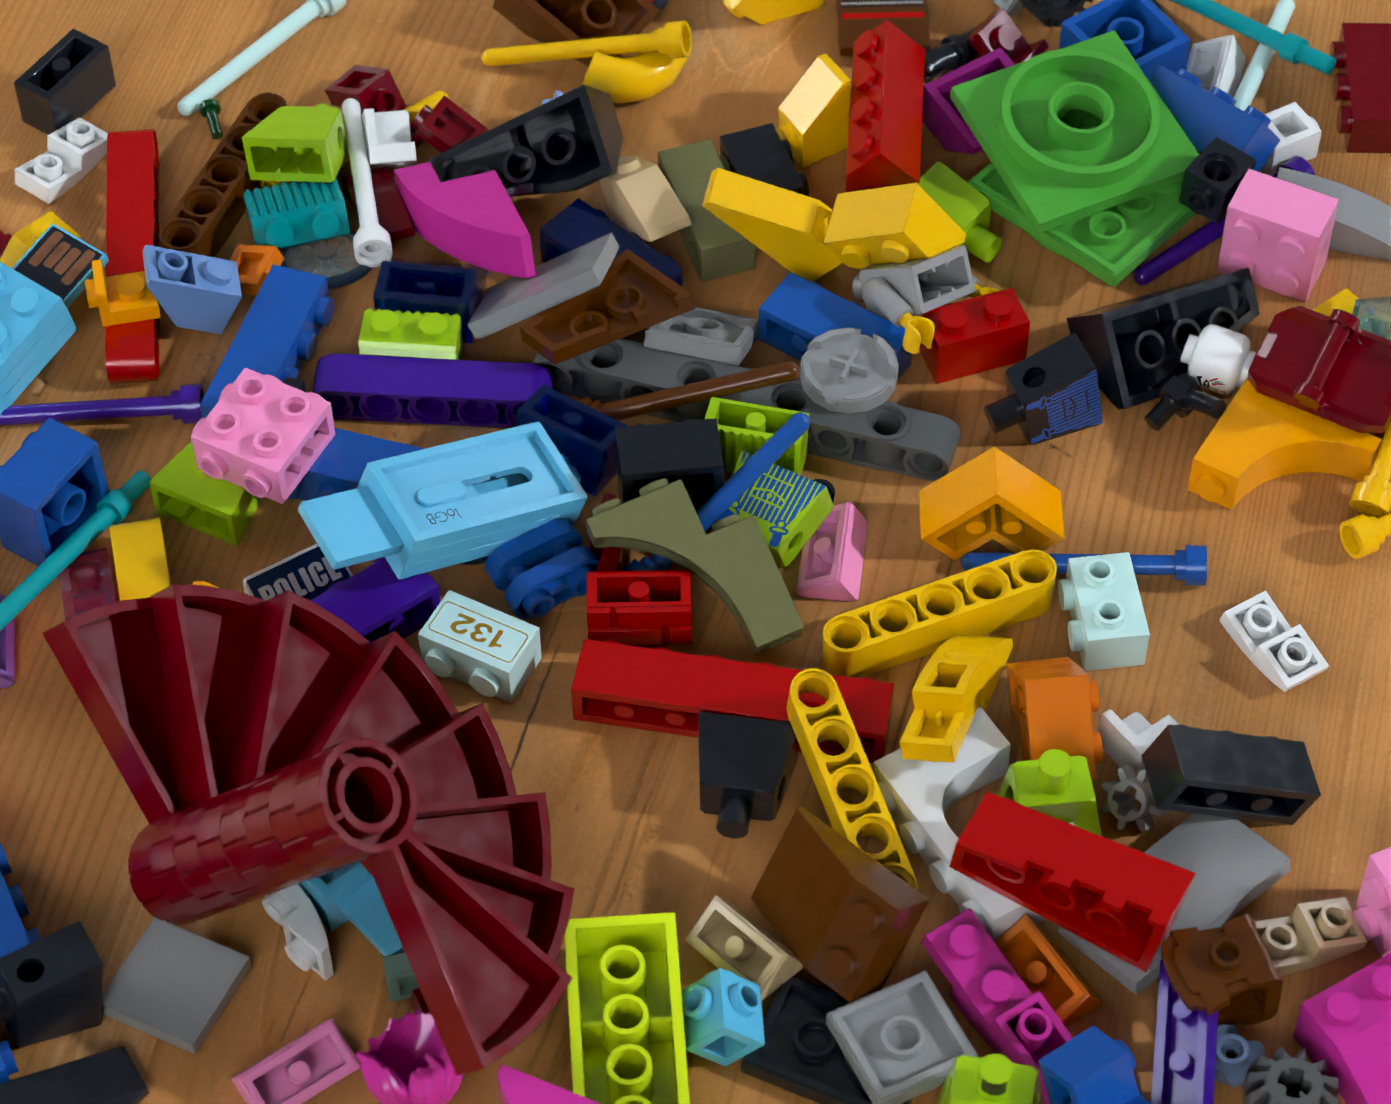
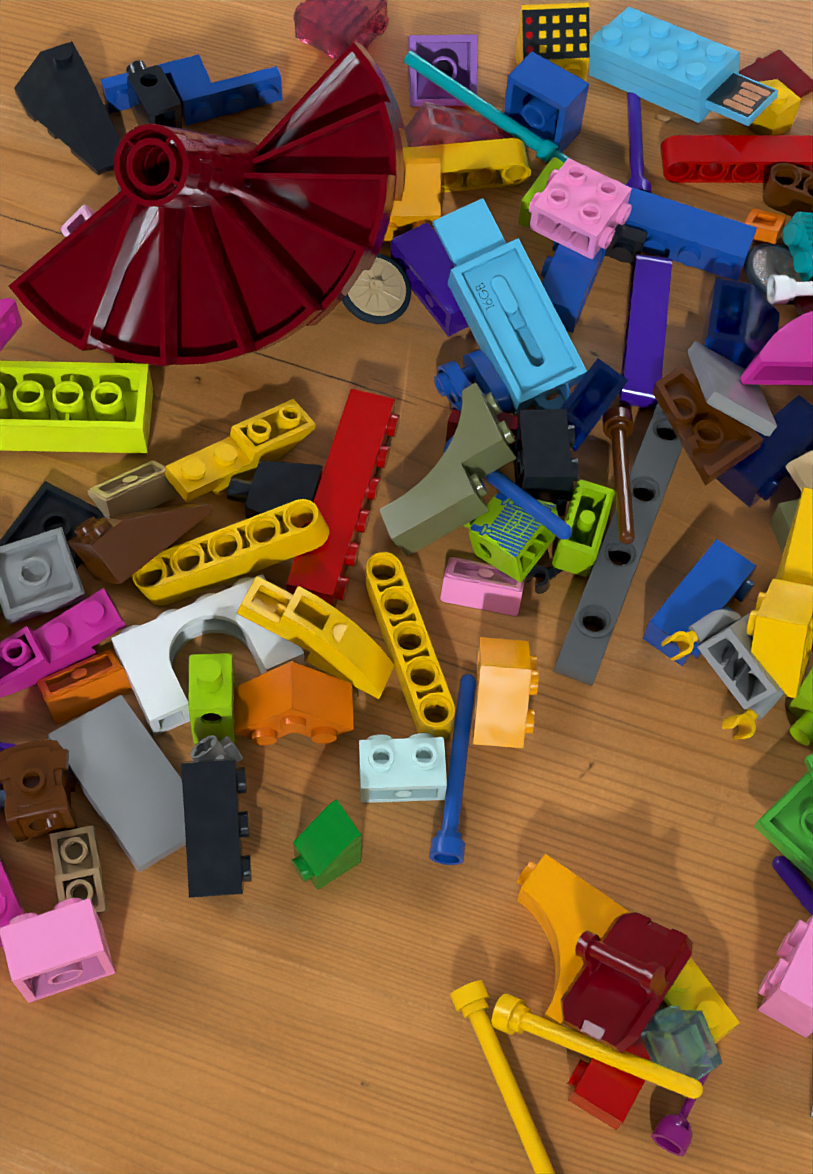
camera: 90 degrees right, 10 degrees up
(120, 297) = (719, 136): light orange bracket -> none
(192, 287) = (732, 176): medium blue slope -> none
(411, 335) = (685, 314): lime brick -> none
(480, 646) = (406, 346): light aqua brick -> none
(639, 606) = (424, 435): red brick -> none
(670, 824) = (250, 442): none -> yellow slope
(705, 335) = (695, 510): light grey tile -> none
(722, 1017) = (73, 465): medium azure brick -> none
(848, 371) = (643, 593): light grey tile -> none
(976, 336) = (697, 706): red brick -> none
(1049, 393) = (626, 753): black torso -> none
(1073, 878) = (117, 681): red wedge -> none
(1130, 737) = (276, 776): white panel -> none
(1143, 338) = (701, 856): black wedge -> none
(1181, 396) = (631, 867): black piece -> none
(1218, 359) = (669, 899): white head -> none
(1225, 664) = (327, 847): none -> green slope
(1271, 644) = (365, 904): white slope -> none

